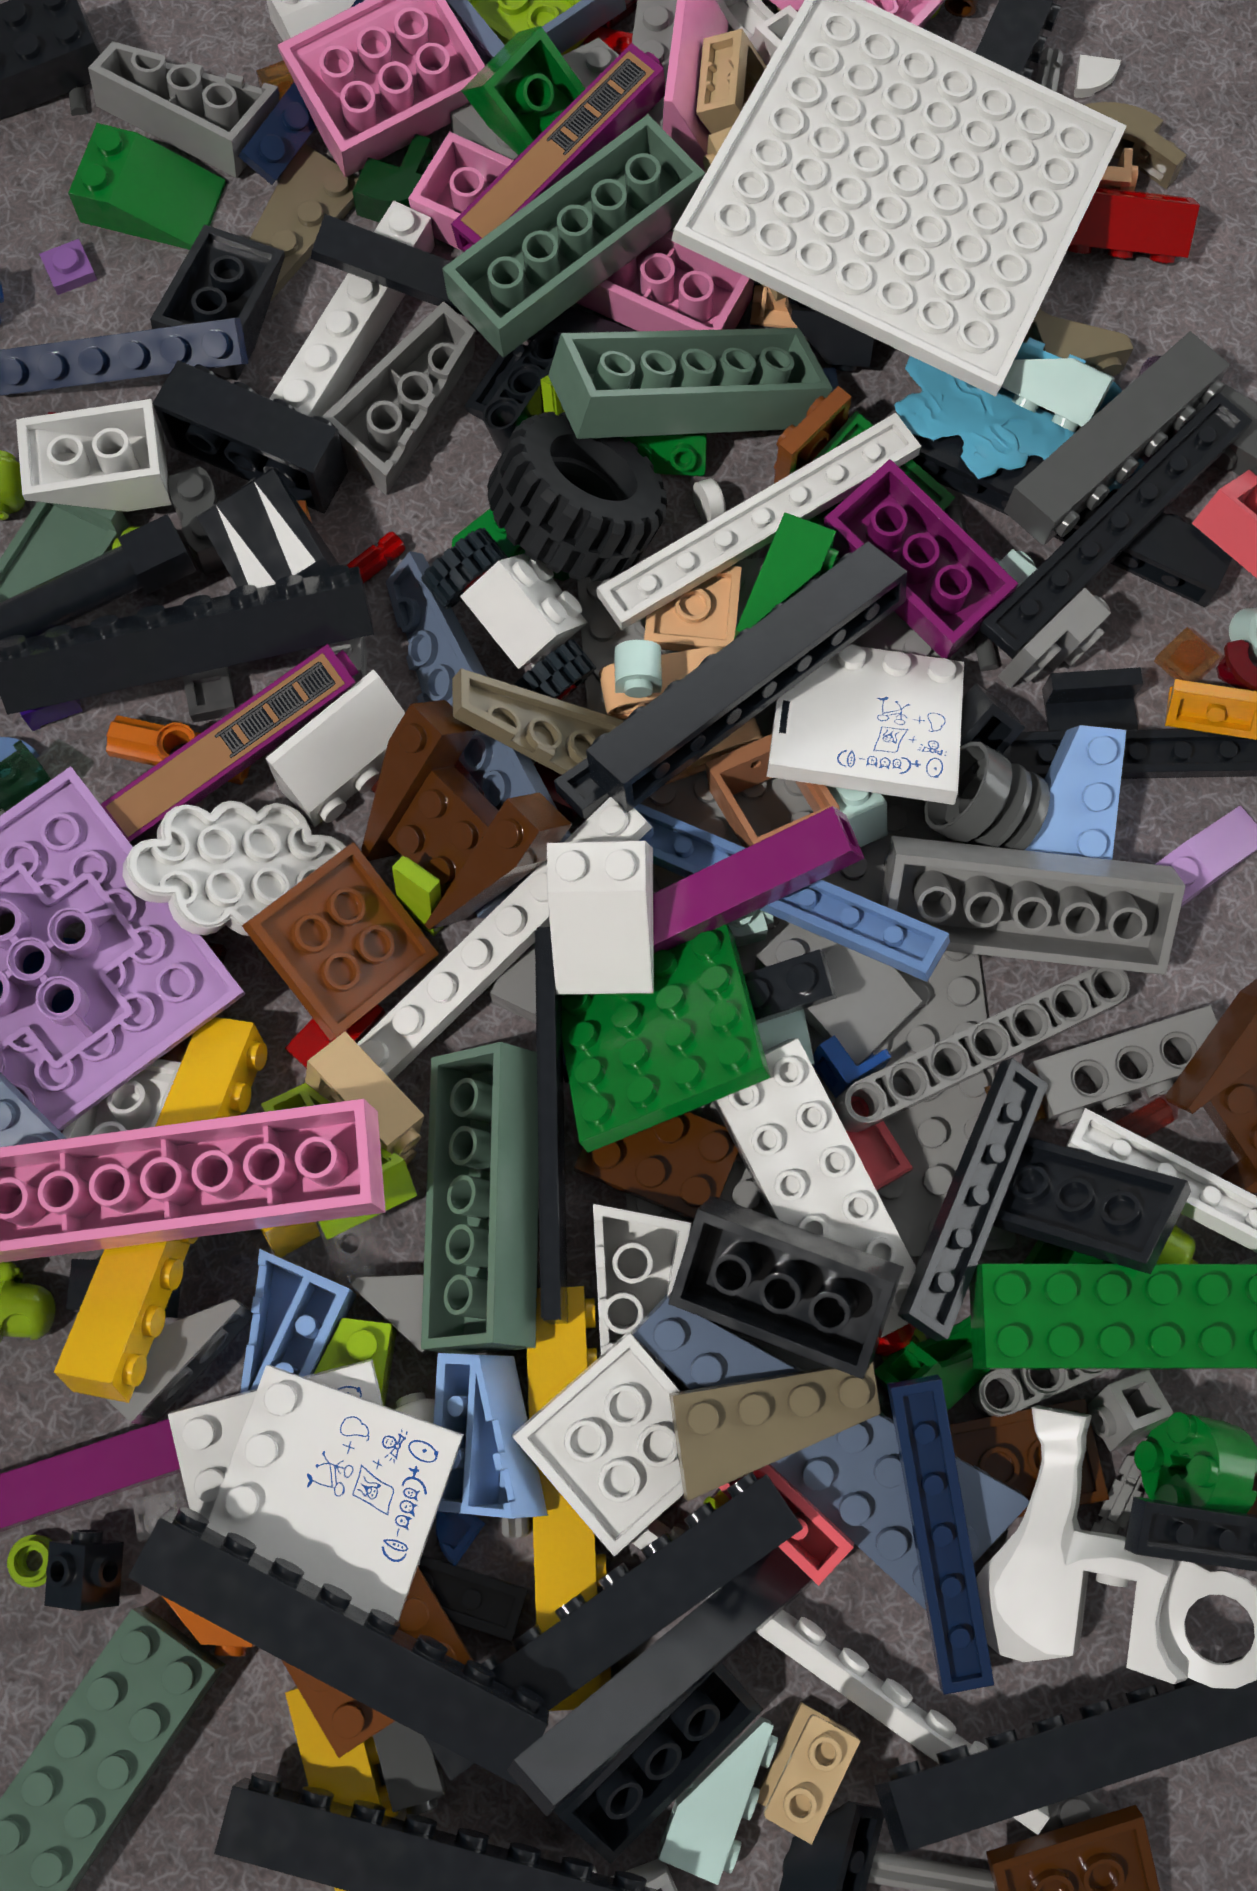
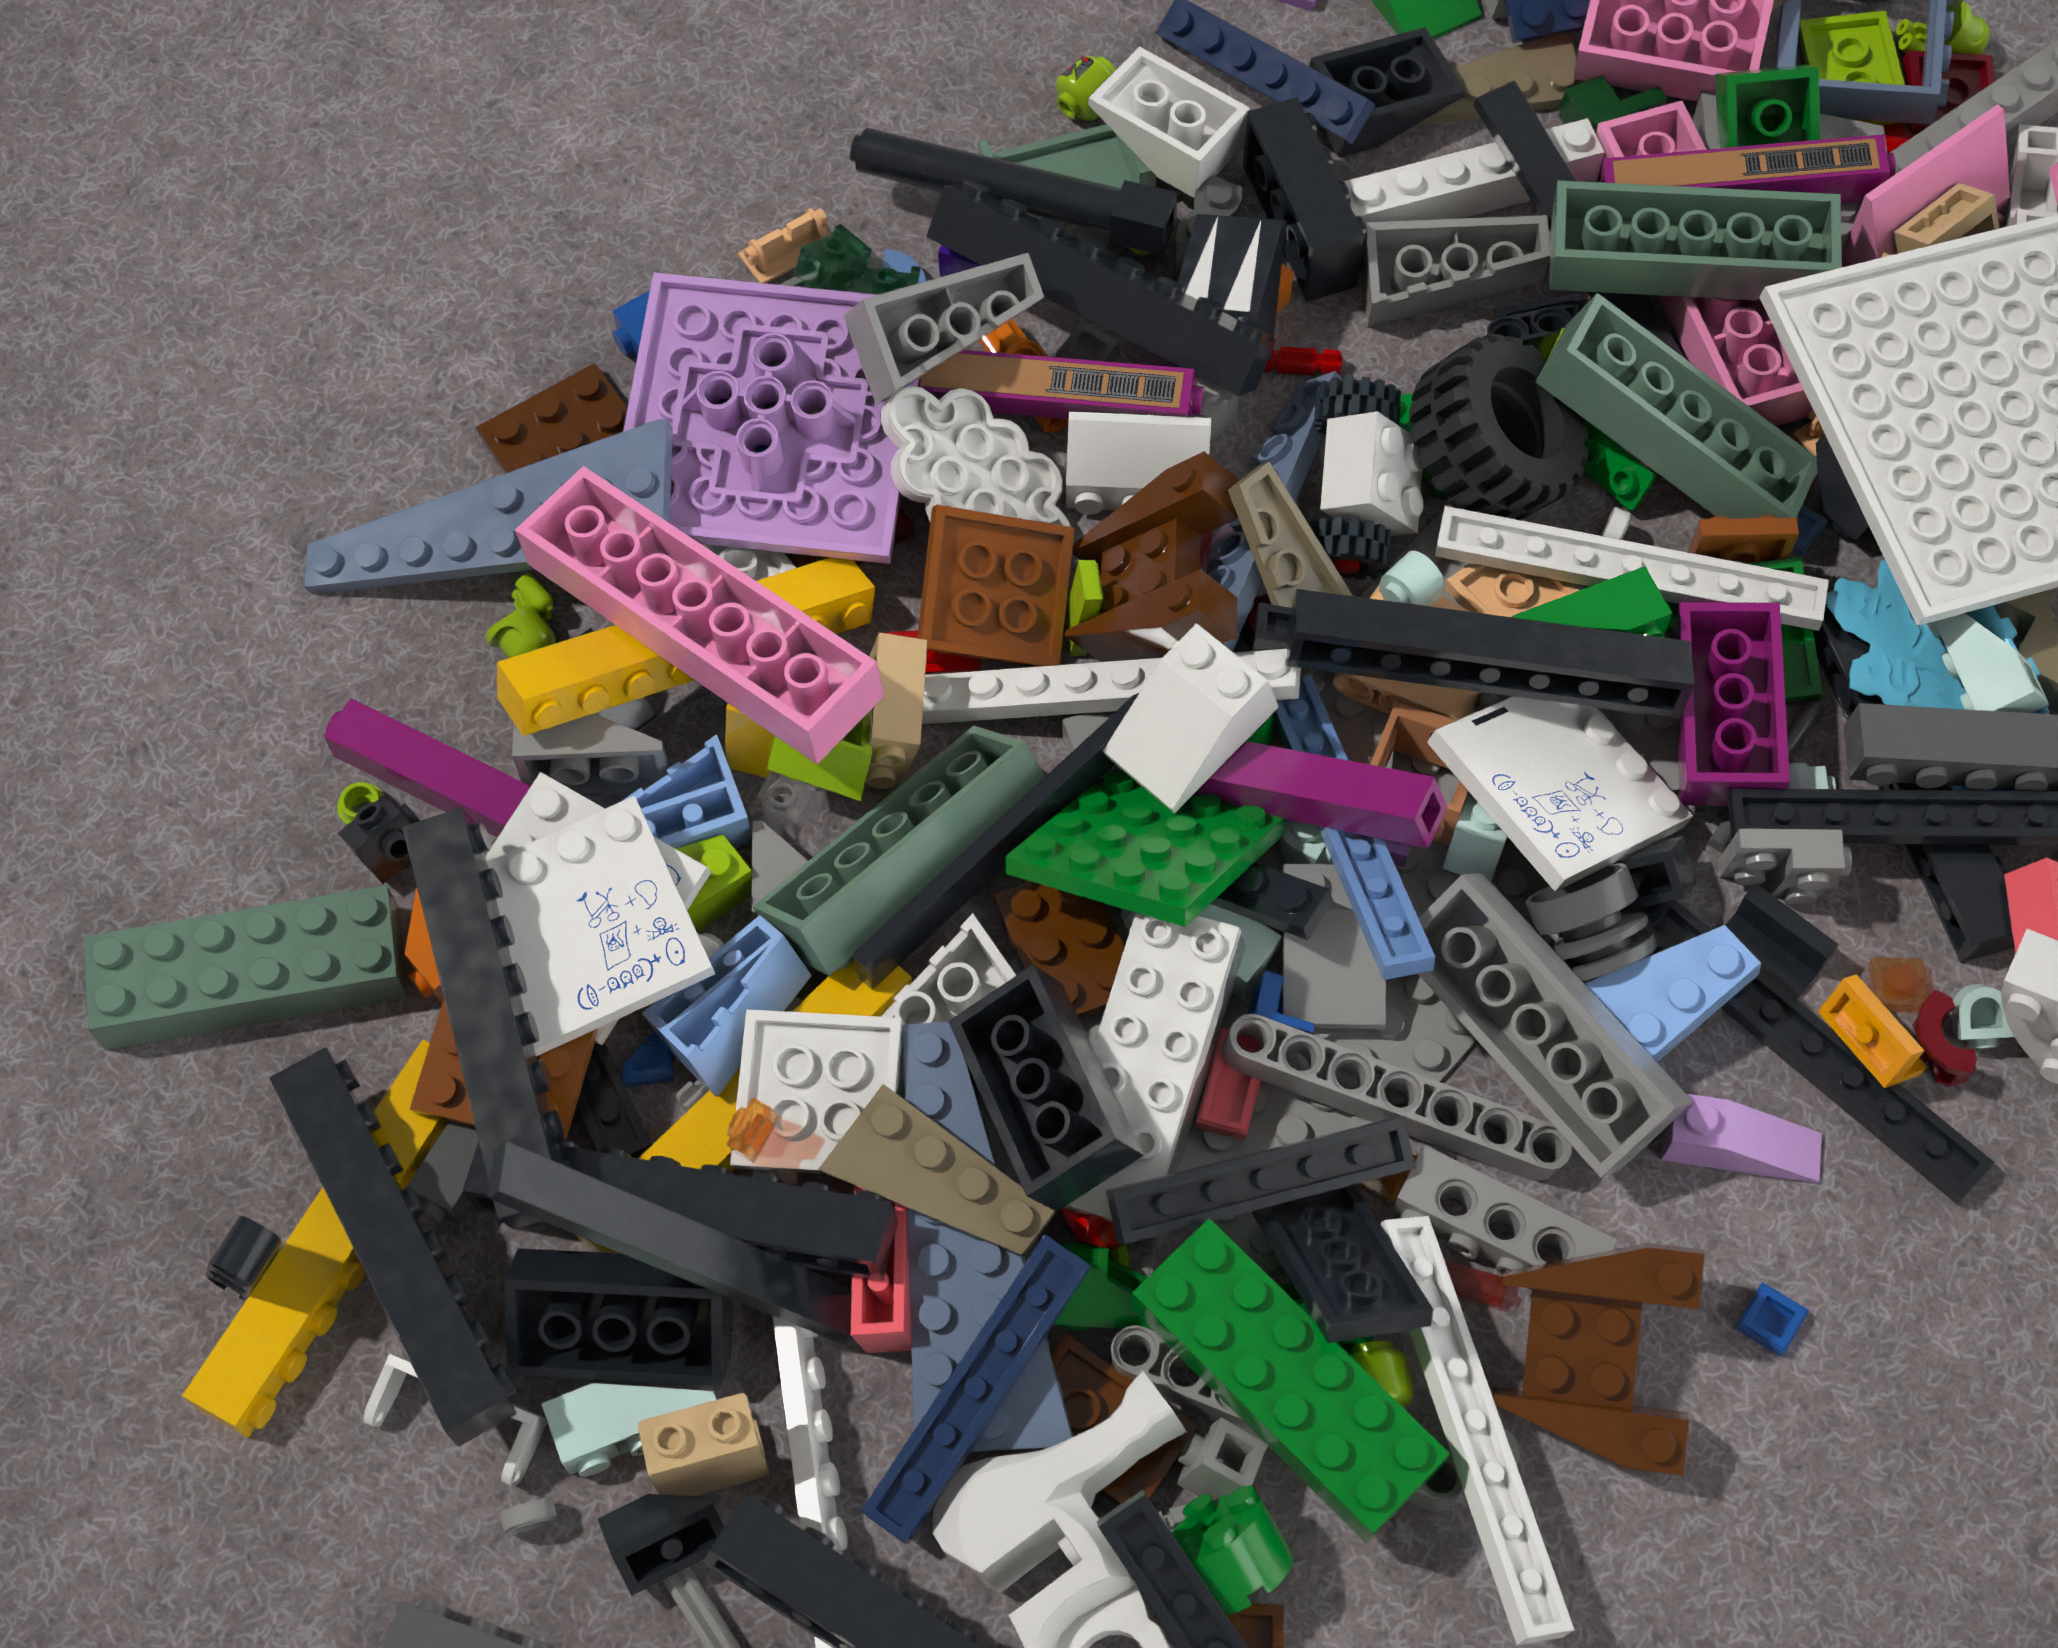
camera: 50 degrees right, 10 degrees down
(101, 789) = (928, 323): none -> light grey wedge
(611, 1522) = (751, 1129): none -> clear orange plate

